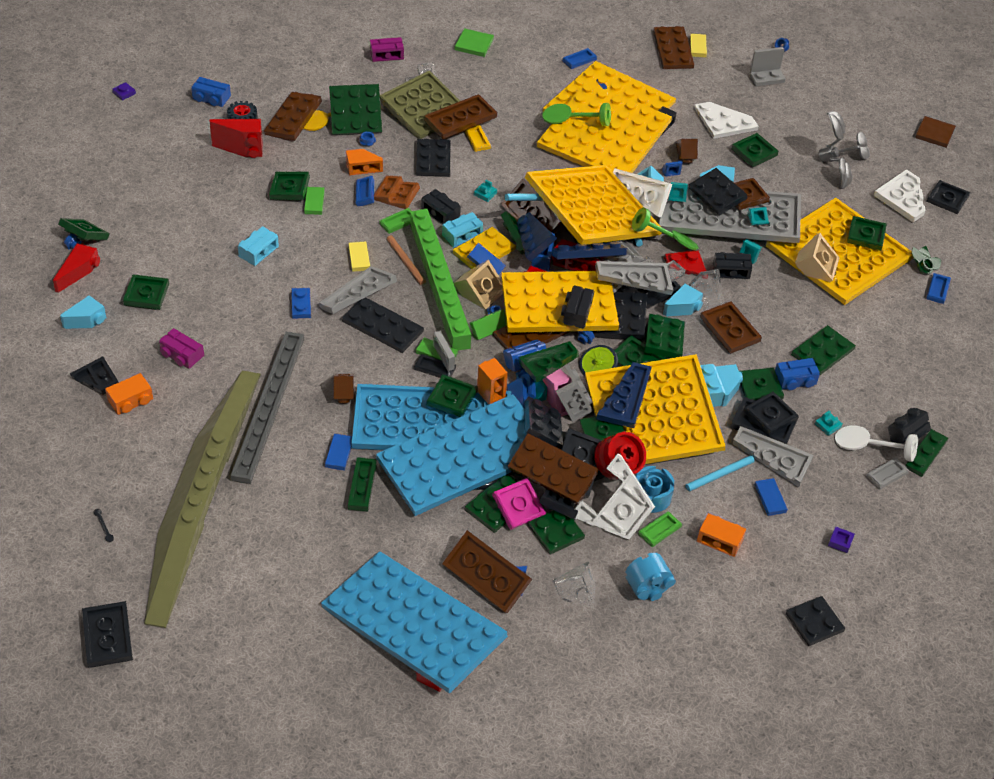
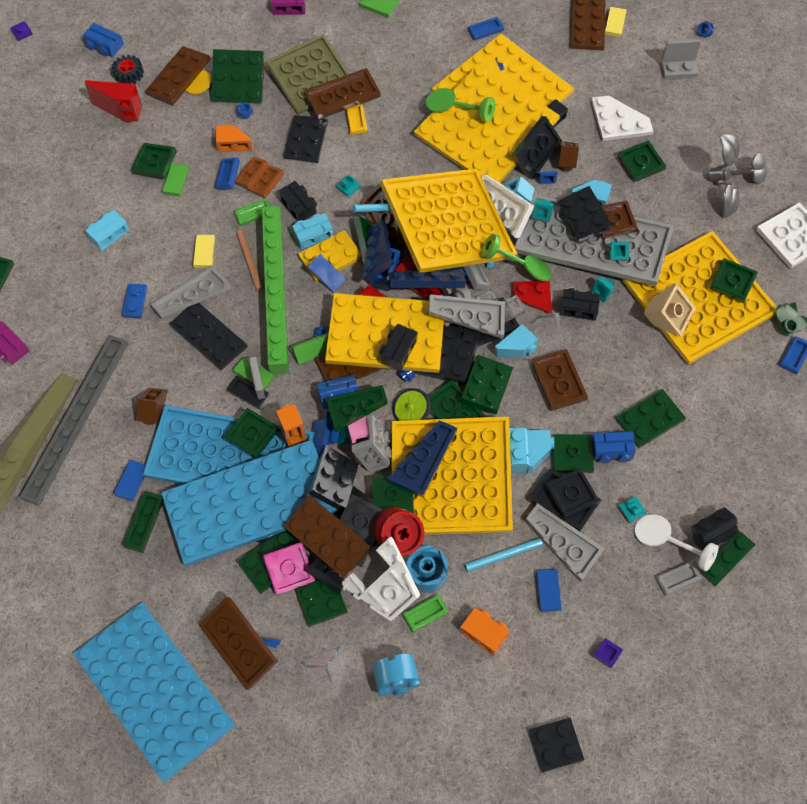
camera: 15 degrees right, 15 degrees up
(480, 285) = (313, 301): tan slope -> none
(658, 143) = (537, 147): none -> black plate

